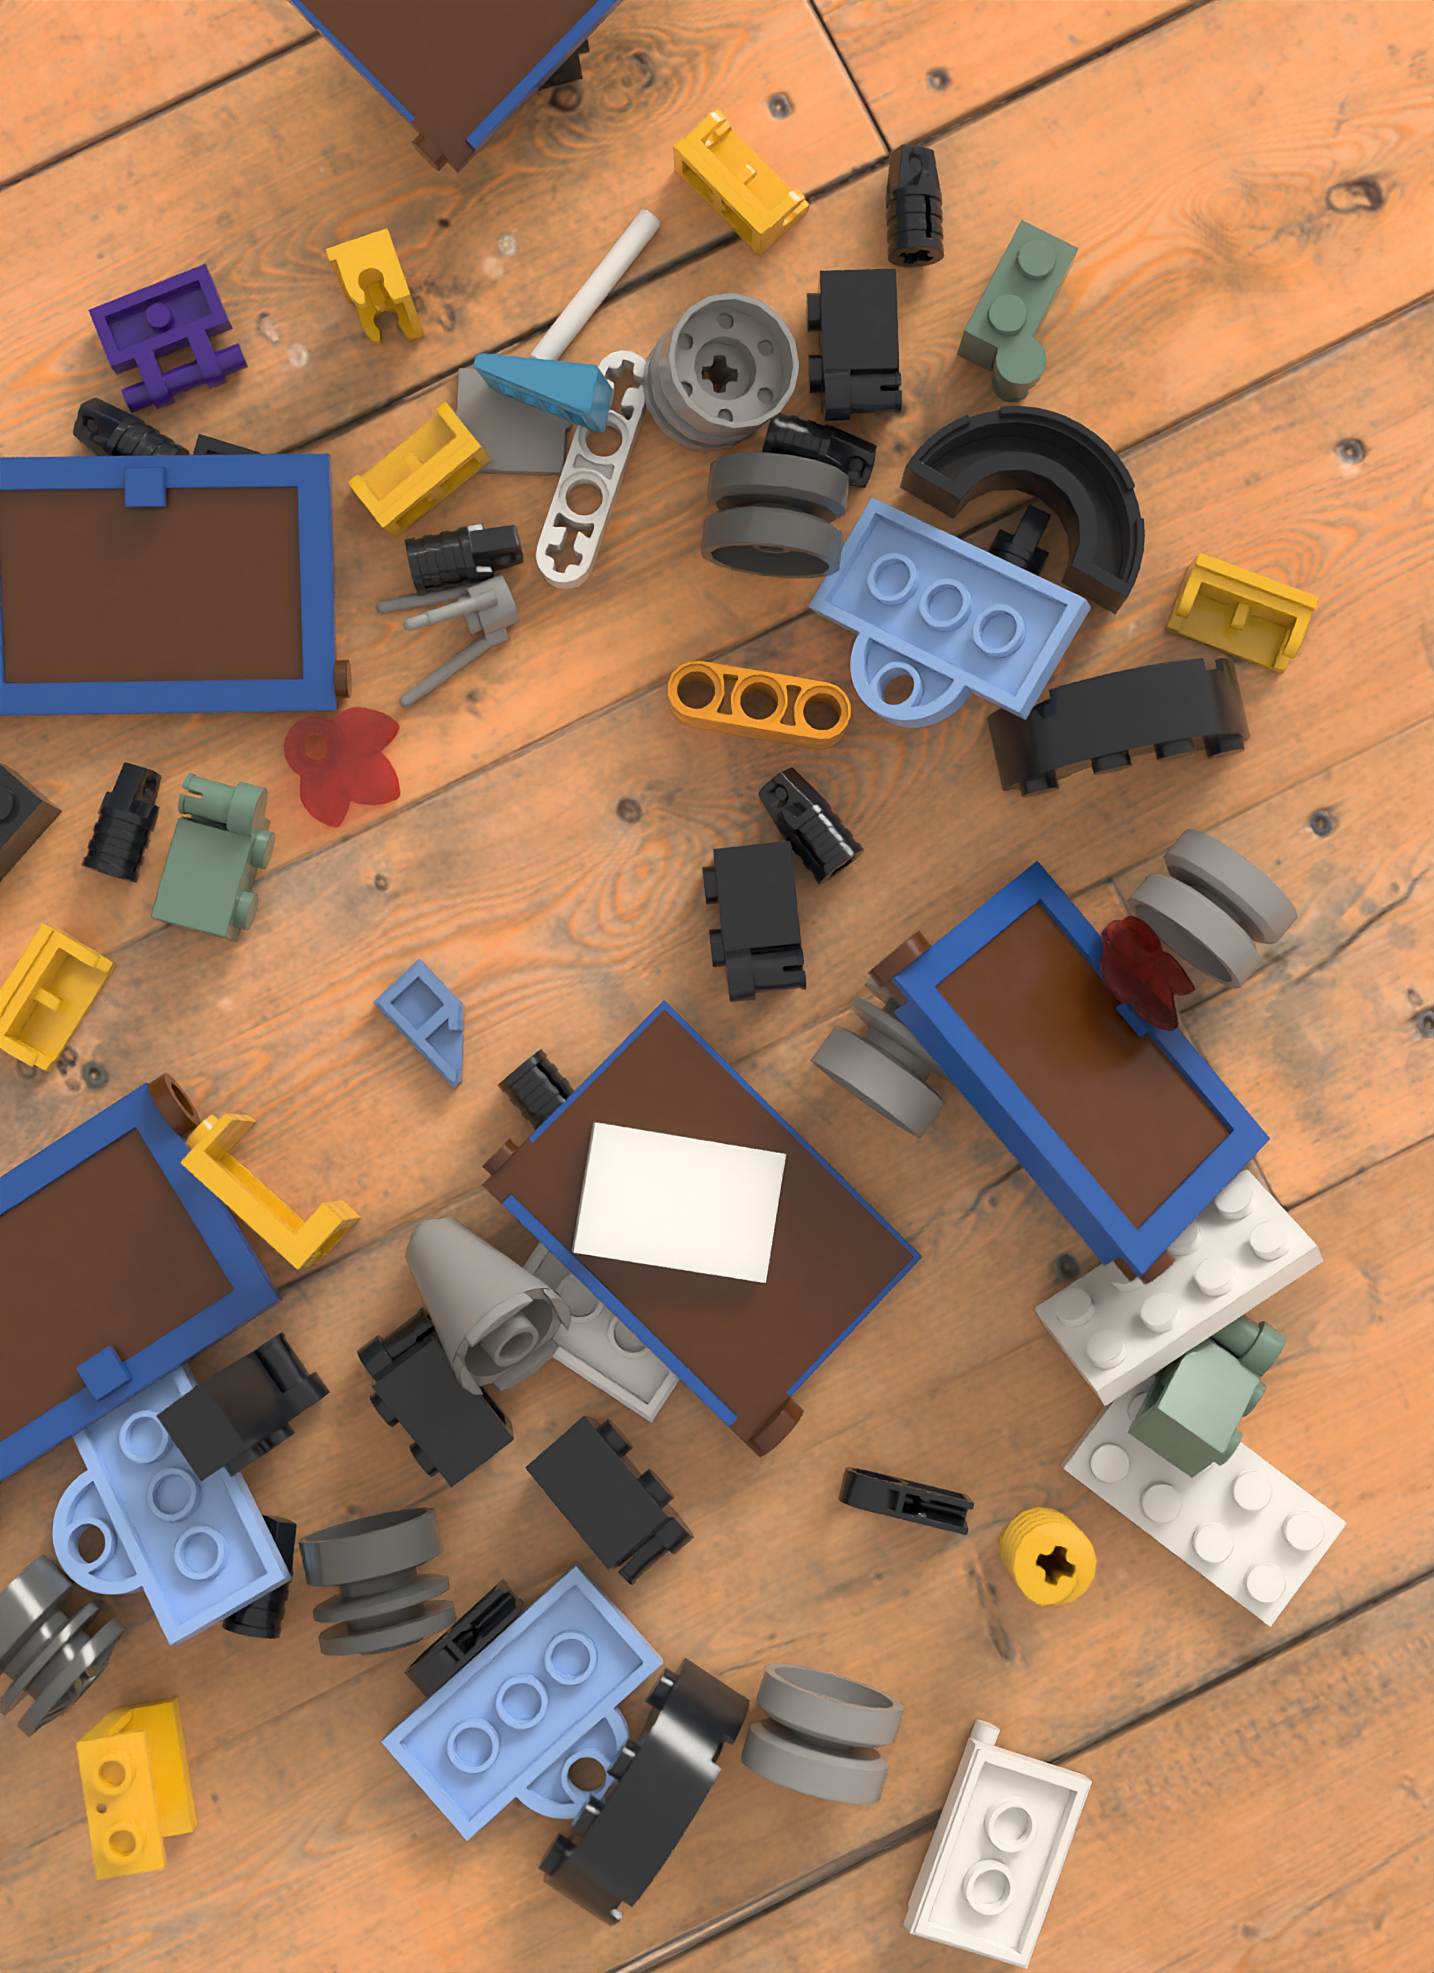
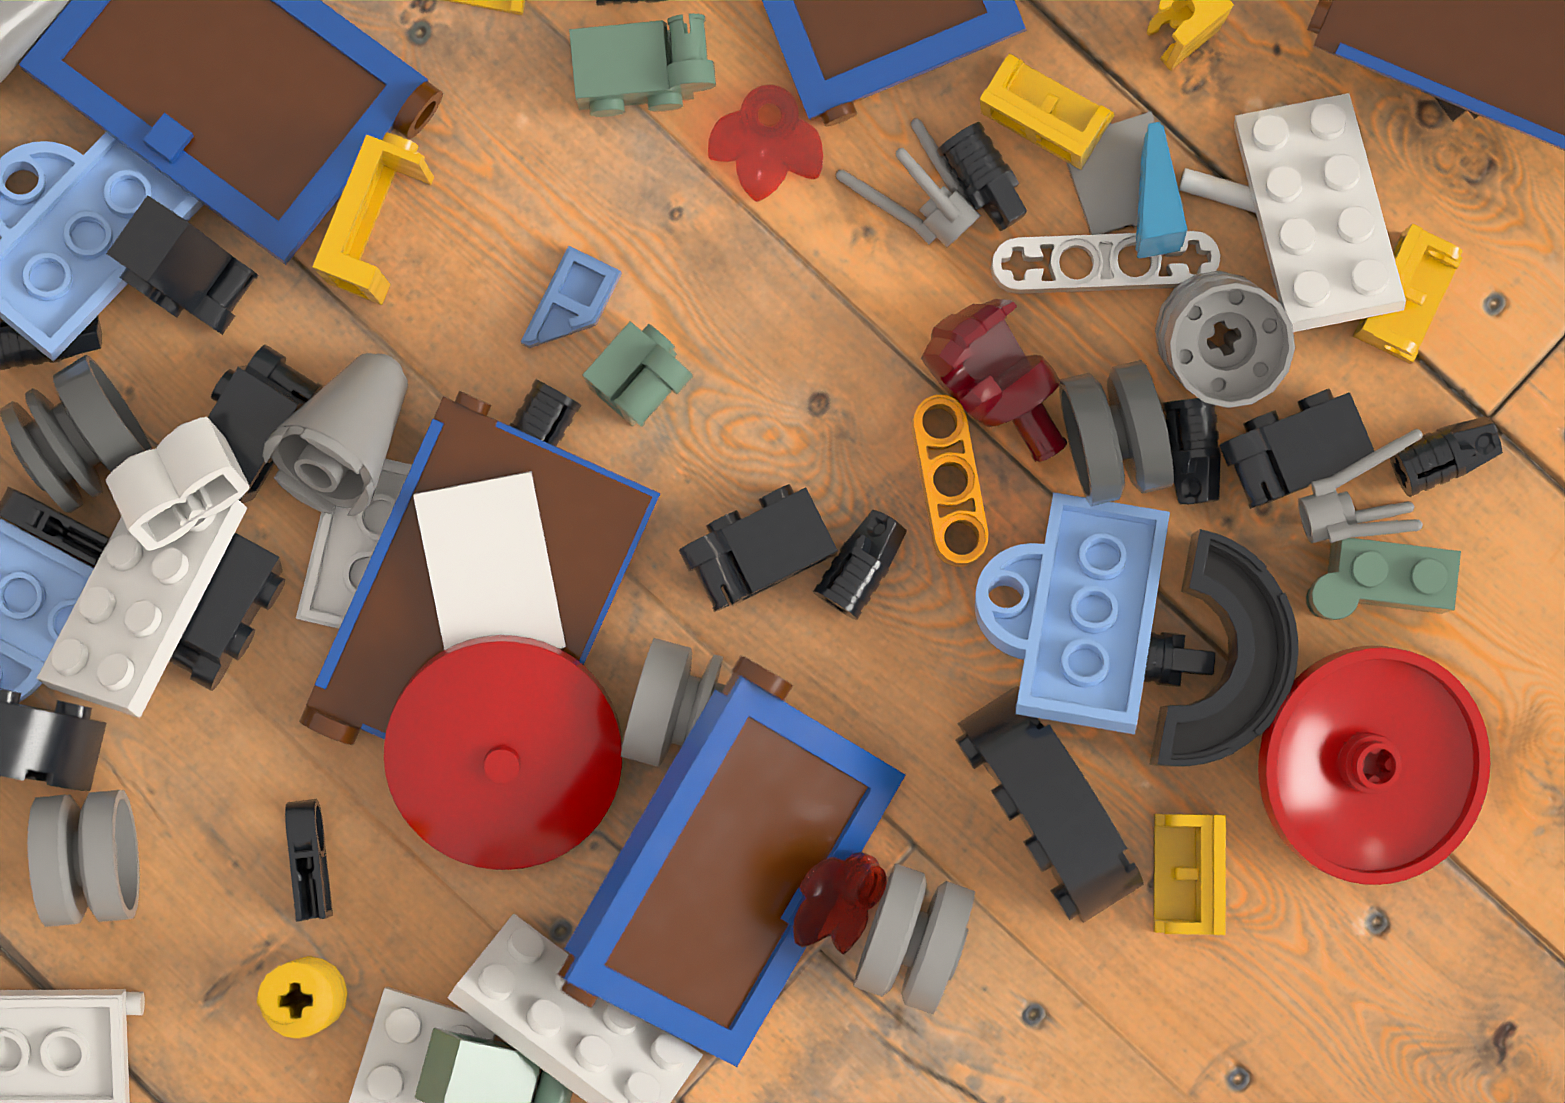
camera: 70 degrees right, 0 degrees up
(470, 1494) = (177, 483): none -> white brick
(536, 975) = (637, 373): none -> sand green hinge
(571, 1573) = (135, 613): none -> white plate
(626, 234) = (1319, 212): none -> white plate
(664, 625) = (991, 376): none -> dark red piece
(869, 1258) = (503, 752): none -> red dish
(937, 332) = (1333, 514): none -> light grey plant
(1201, 387) = (1375, 765): none -> red dish

